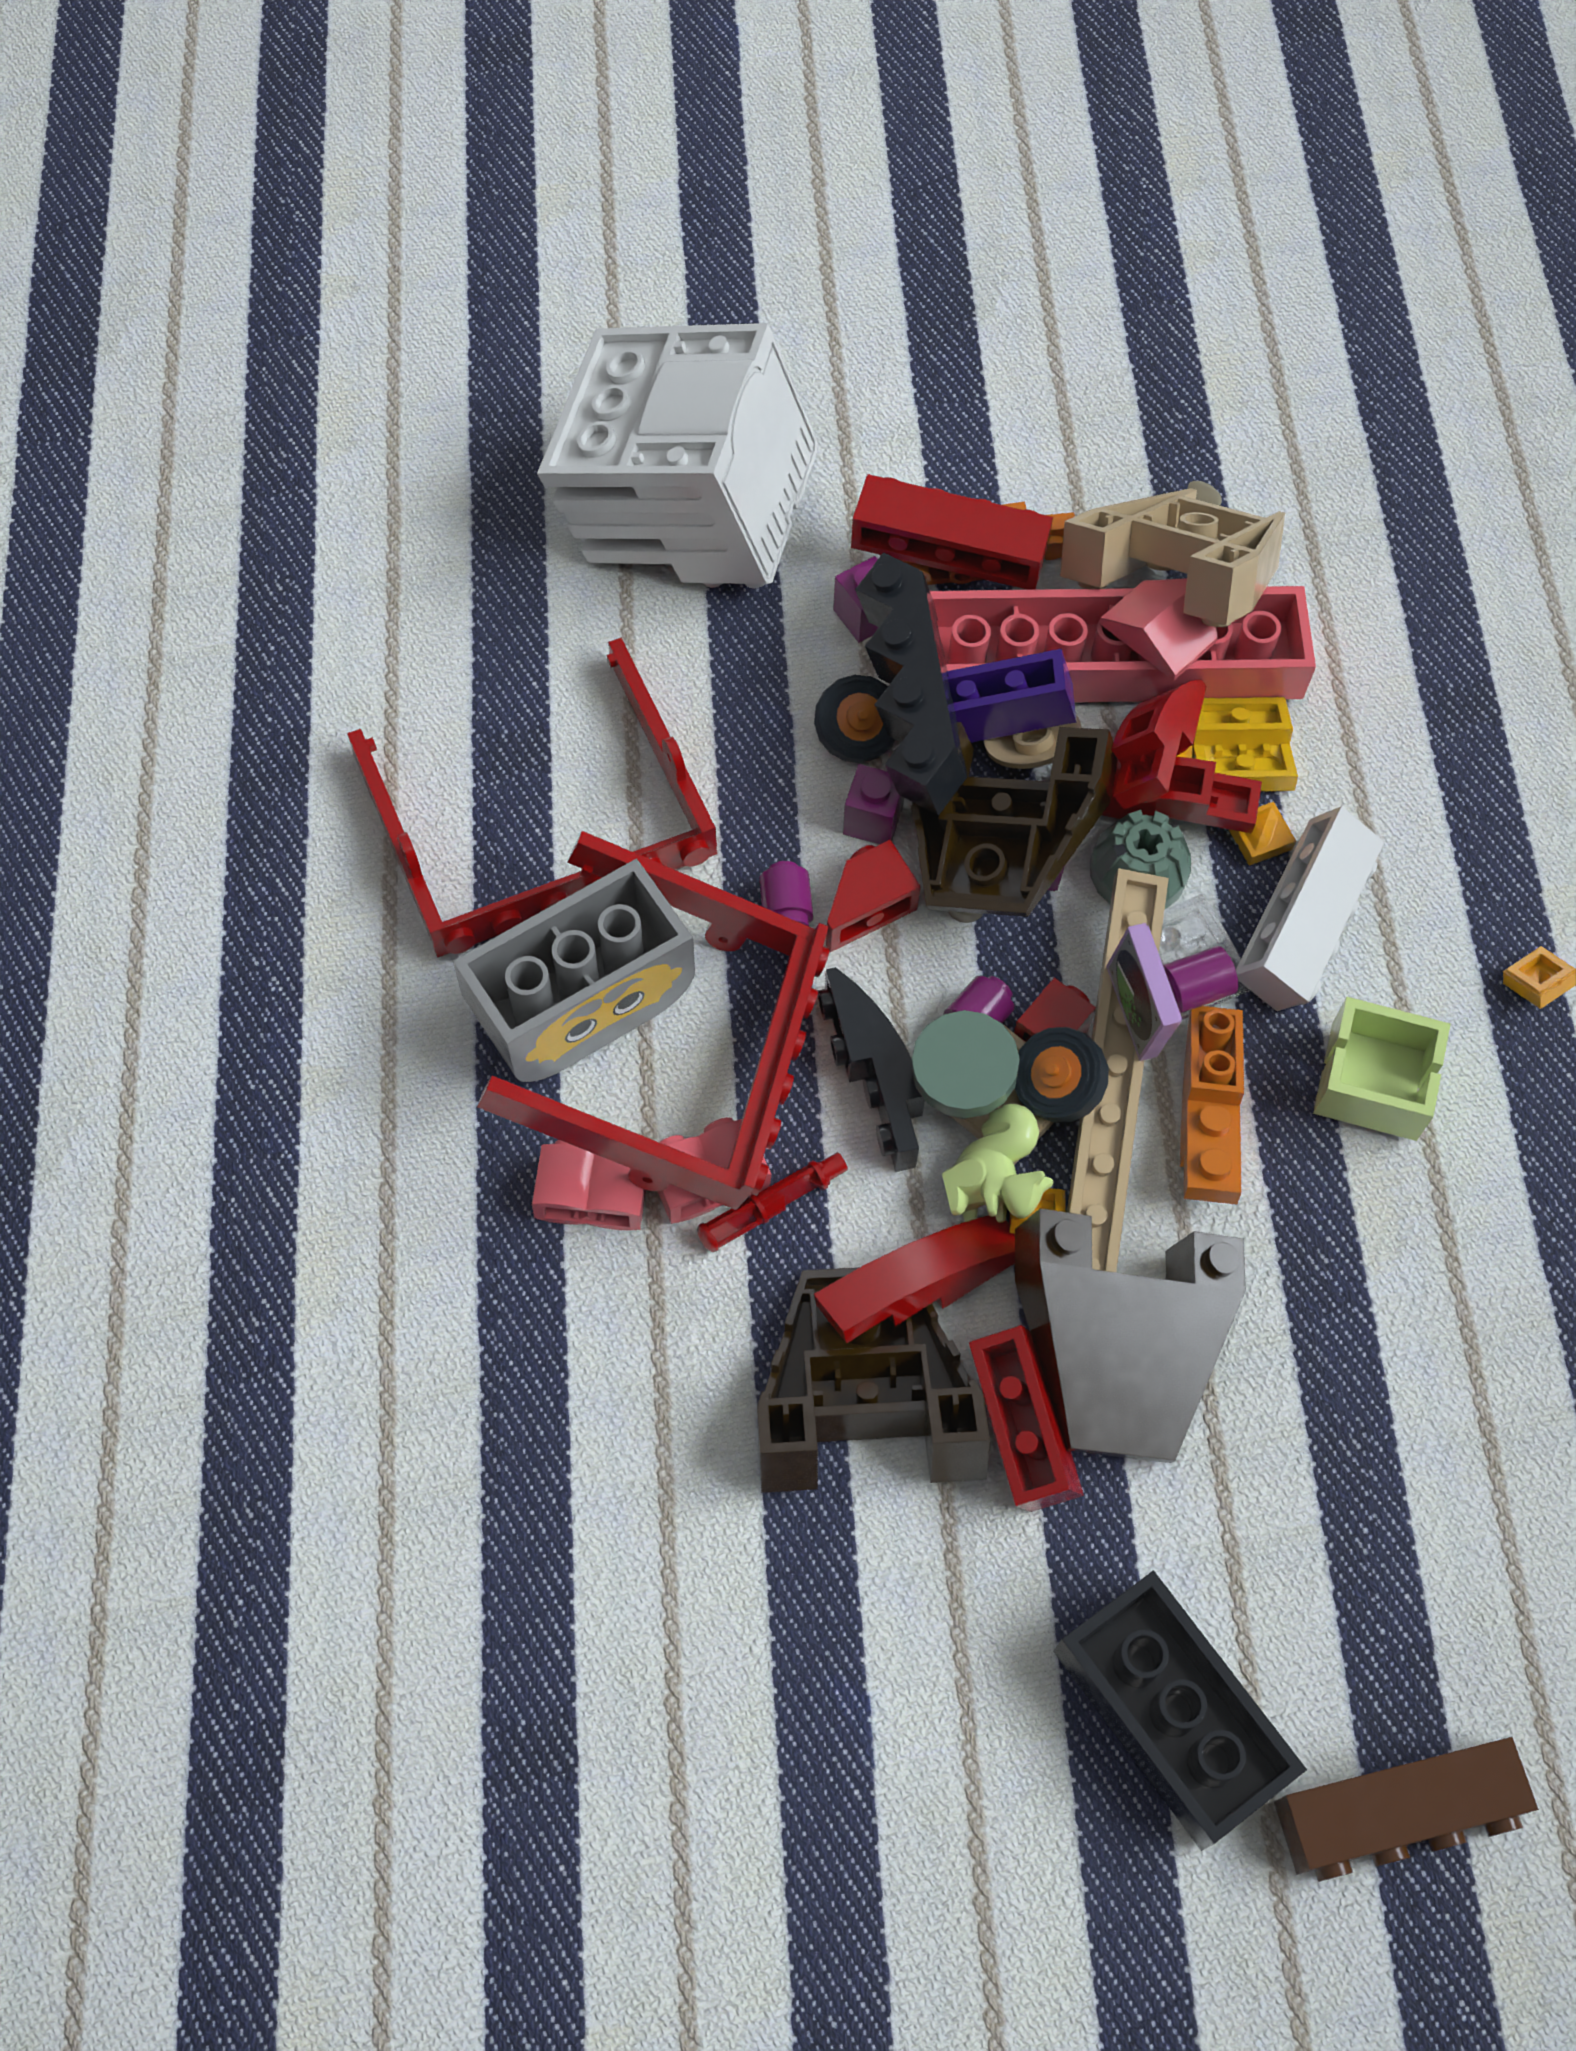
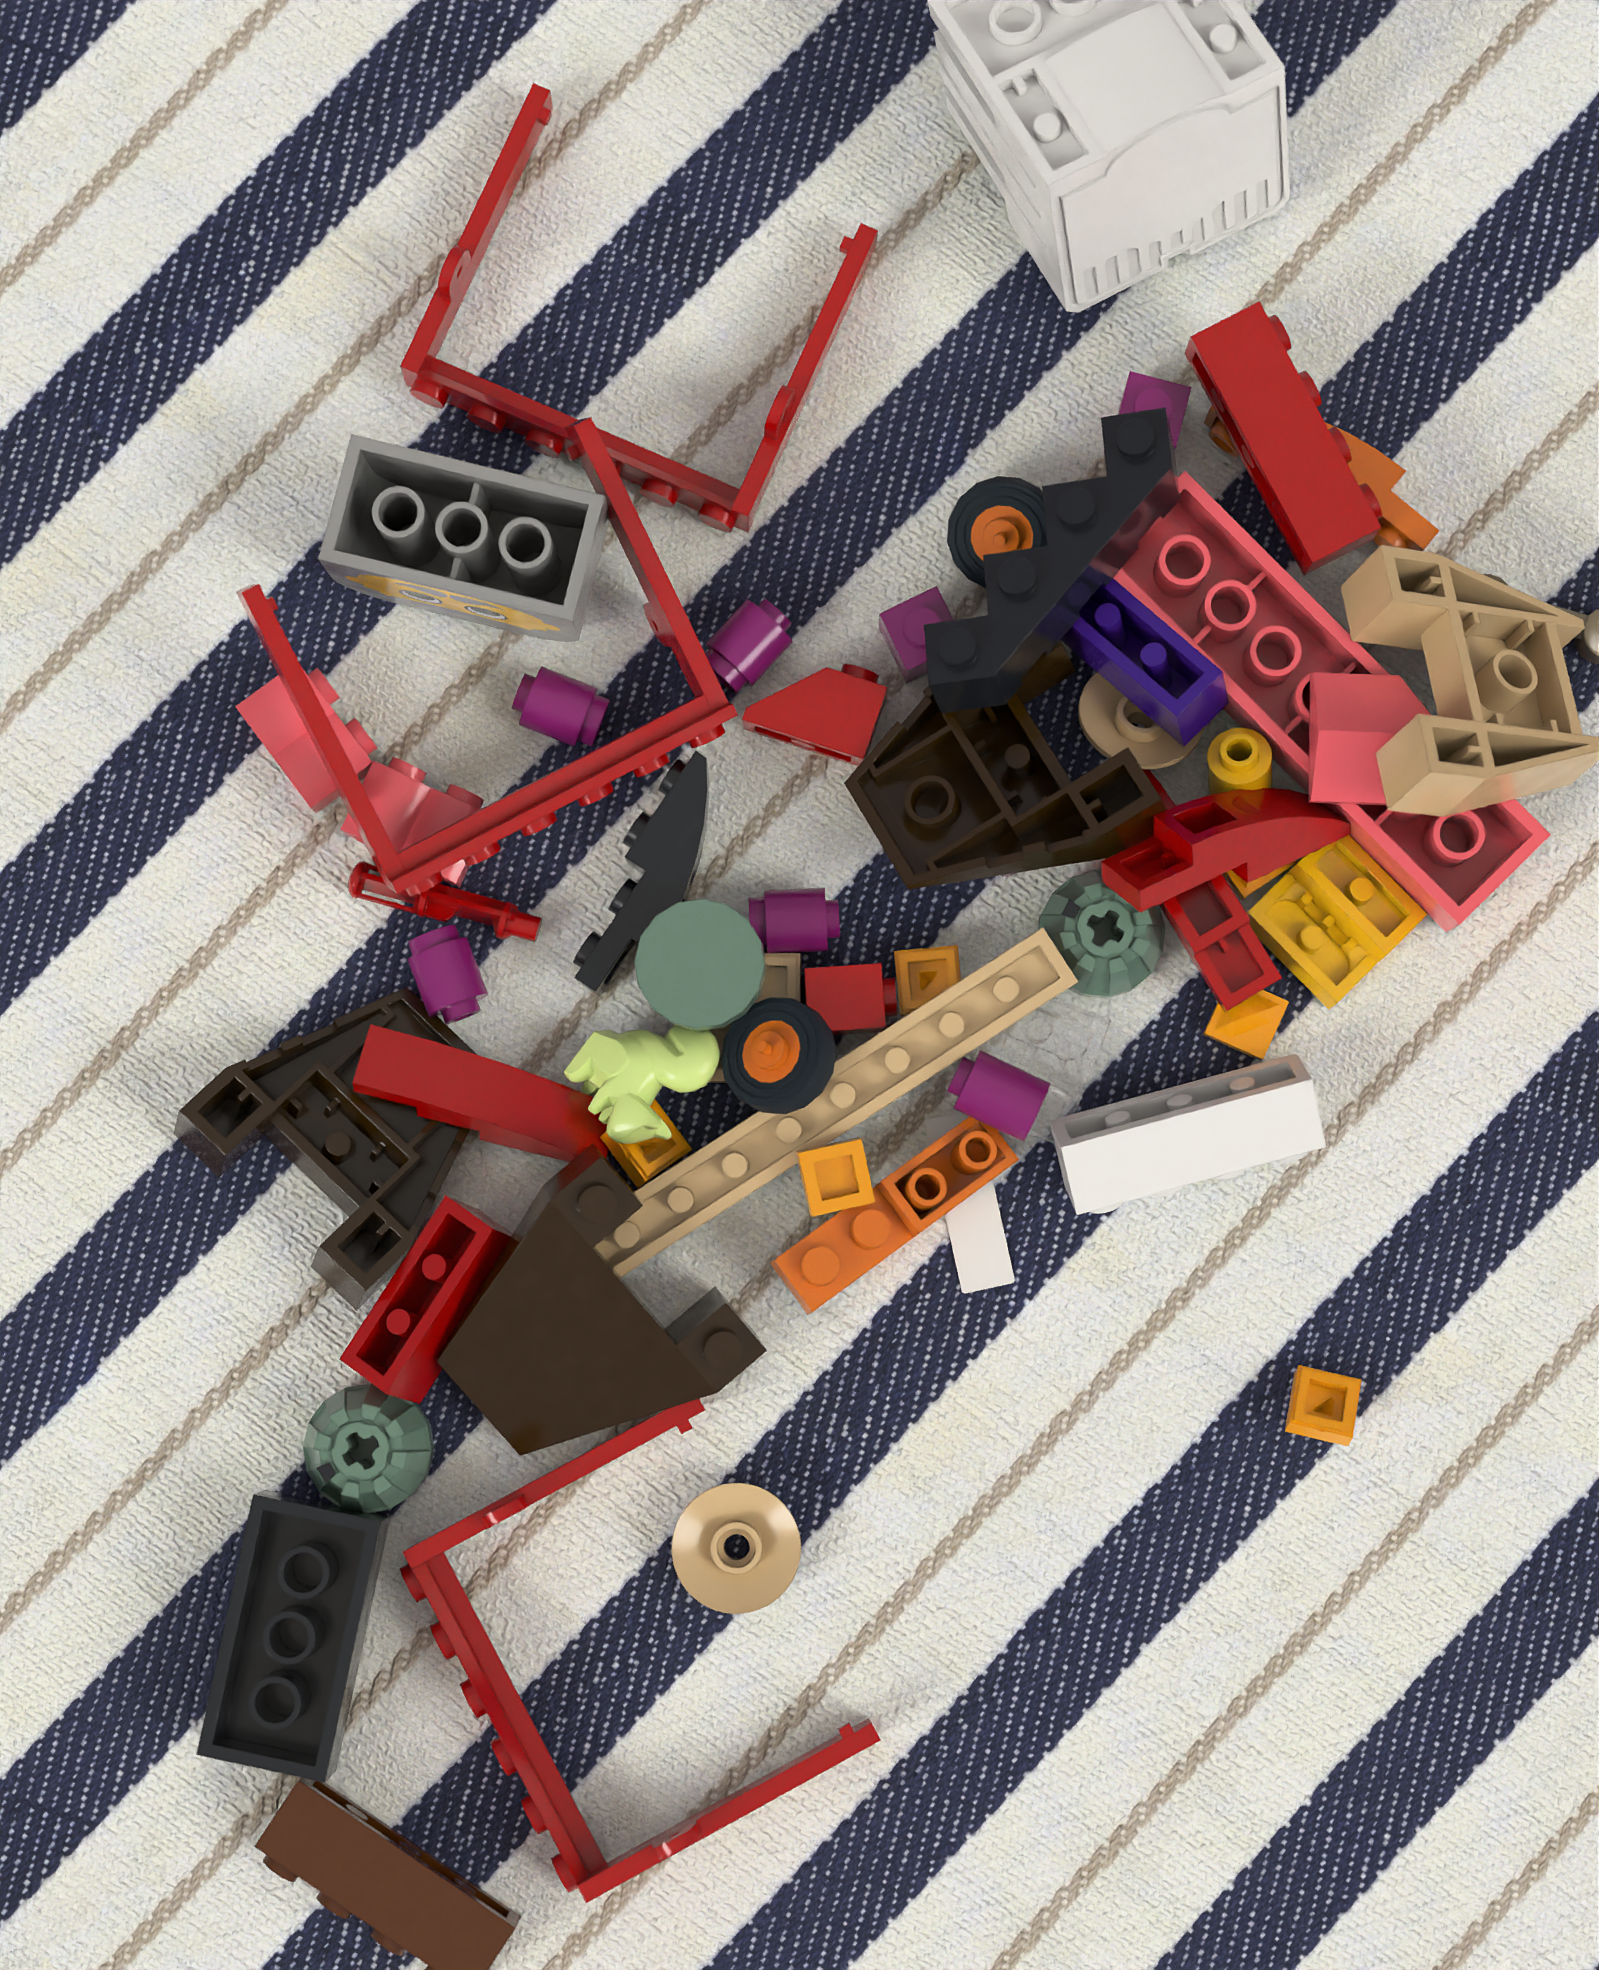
camera: 55 degrees right, 20 degrees up
(720, 1030) = (560, 707): none -> magenta brick
(820, 1234) = (446, 974): none -> magenta brick
(1080, 968) = (925, 974): none -> light orange tile
(1083, 1556) = (368, 1449): none -> sand green piece
(1111, 702) = (1239, 761): none -> yellow brick
(1143, 991) = (907, 1068): tile -> none
(1165, 1109) = (835, 1176): none -> light orange tile
(1261, 1078) = (975, 1227): none -> white sticker
(1370, 1361) = (729, 1582): none -> tan dish
(1373, 1633) = (519, 1742): none -> red piece
(1377, 1065) = (1069, 1336): yellowish green piece -> none

